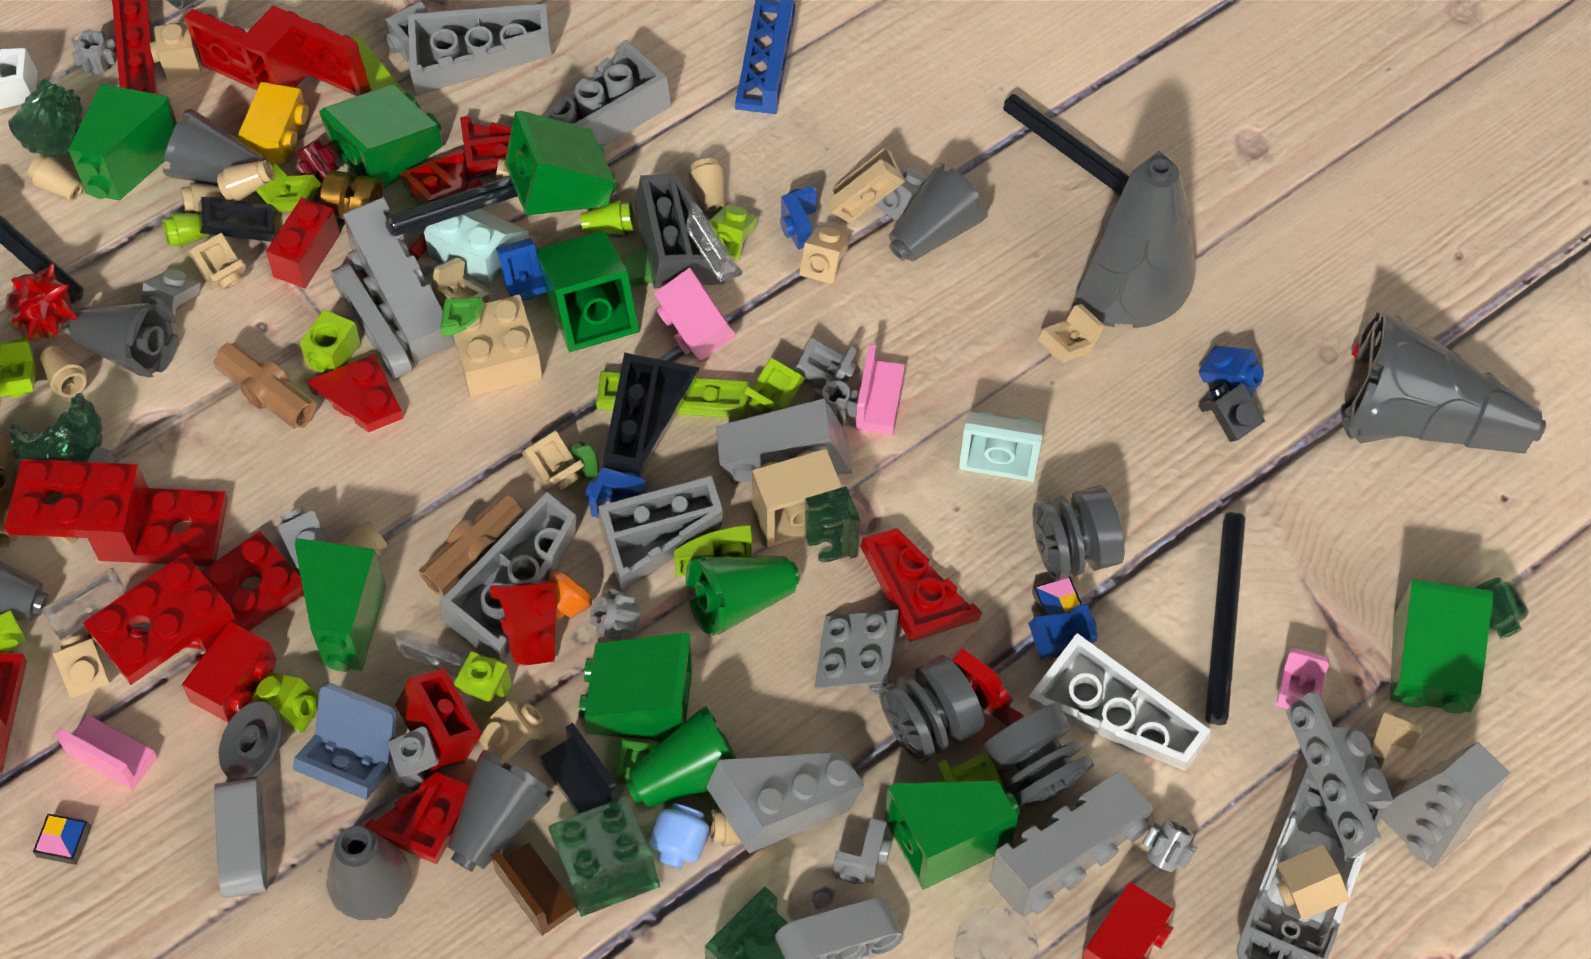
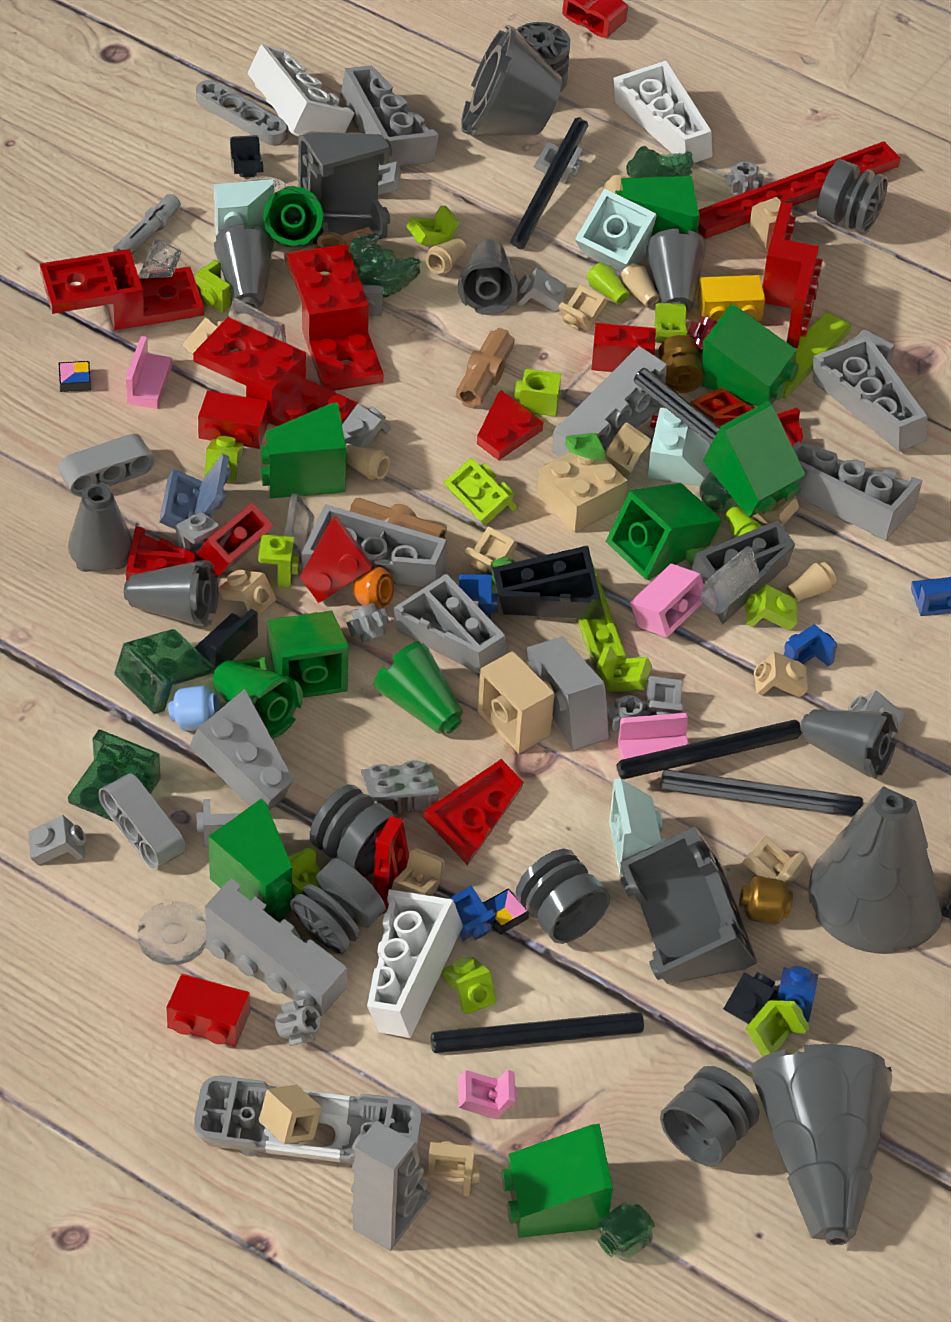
camera: 70 degrees right, 10 degrees down
(39, 305) = (489, 217): red hair -> none
(131, 187) = (616, 231): none -> light aqua slope
(236, 219) = (626, 302): black tile -> none
(243, 179) = (655, 290): tan cone -> none
(250, 741) = (181, 447): dark grey dish -> none
(371, 321) = (542, 432): light grey beam -> none
(456, 446) = (479, 492): none -> lime bracket
(521, 269) = (662, 473): blue bracket -> none
(534, 888) = (118, 628): reddish brown panel -> none
(549, 227) = (715, 495): none -> clear green head
(721, 543) = (455, 670): lime slope -> none
(834, 520) = (505, 730): clear green hinge -> none
(865, 187) = (854, 679): tan panel -> none
(907, 346) = (708, 749): none -> black axle
(968, 322) = (760, 792): none -> black axle
(1012, 671) = (421, 873): none -> tan bracket
(1118, 357) = (766, 900): none -> pearl gold head
(1121, 430) = (688, 909): none -> dark grey windscreen
(1151, 657) = (472, 984): none -> lime bracket
(1275, 407) = (775, 1024): none -> lime bracket
(1343, 773) = (410, 1113): light grey bracket -> none
(1388, 486) = (709, 1115): none -> dark grey wheel

